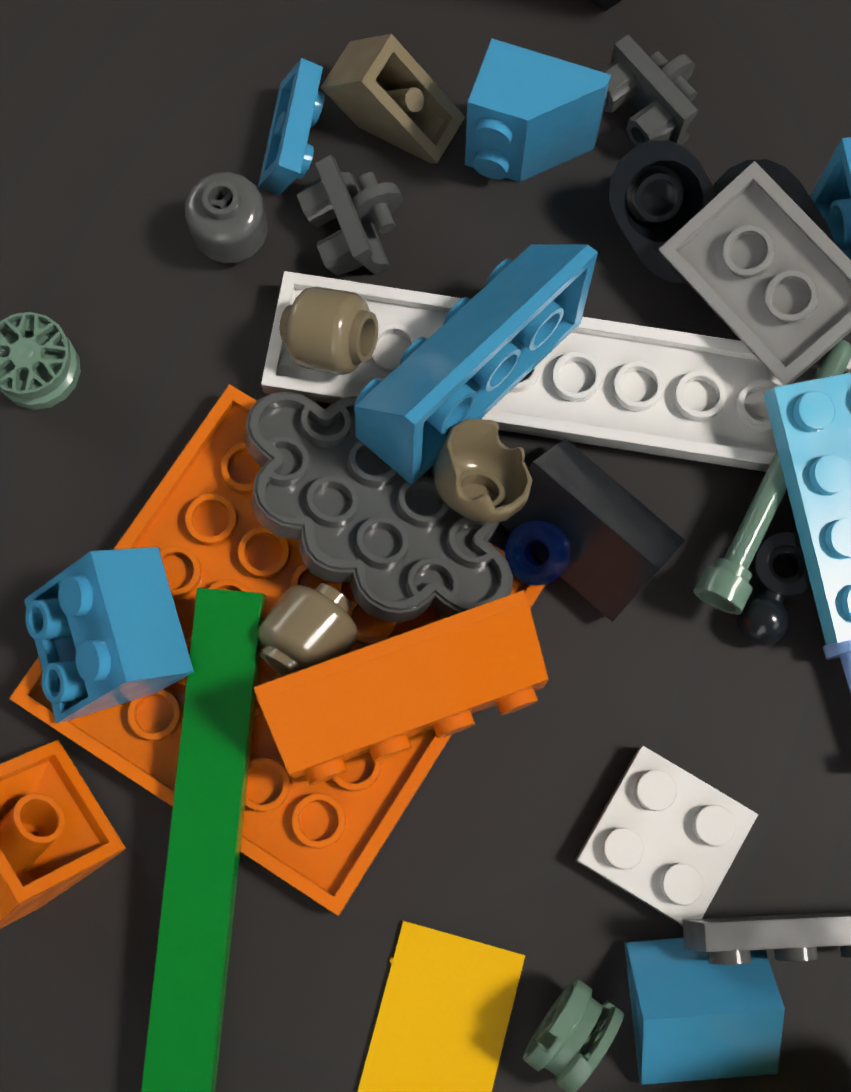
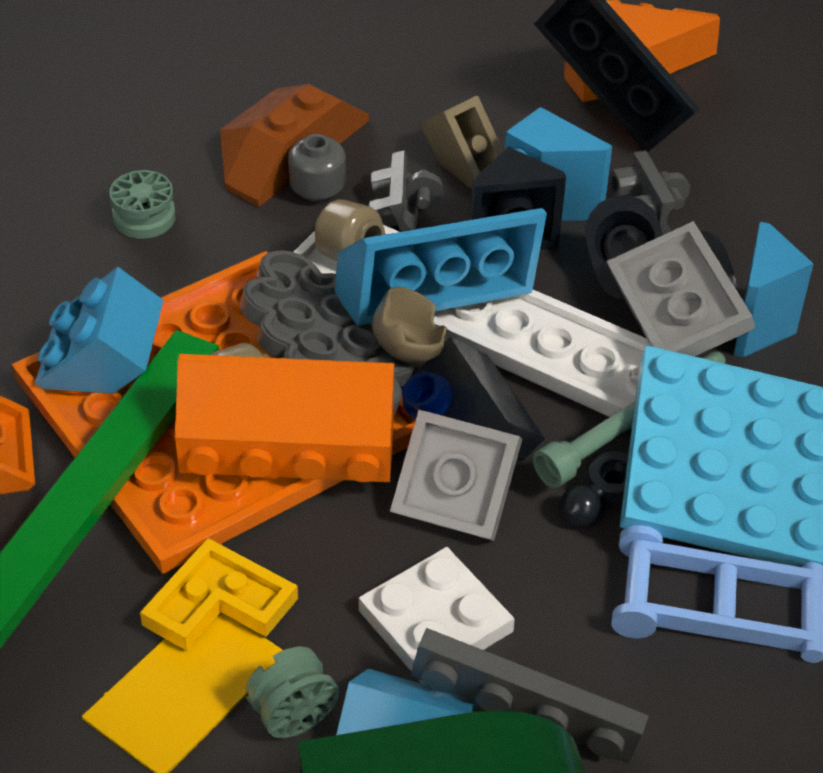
camera: 20 degrees right, 30 degrees down
(140, 168) = (259, 139): none -> dark orange wedge
(295, 111) = (379, 149): dark azure plate -> none
(407, 911) = (215, 583): none -> yellow plate
(512, 193) = (517, 185): none -> black slope
(619, 651) = (456, 475): none -> light grey plate

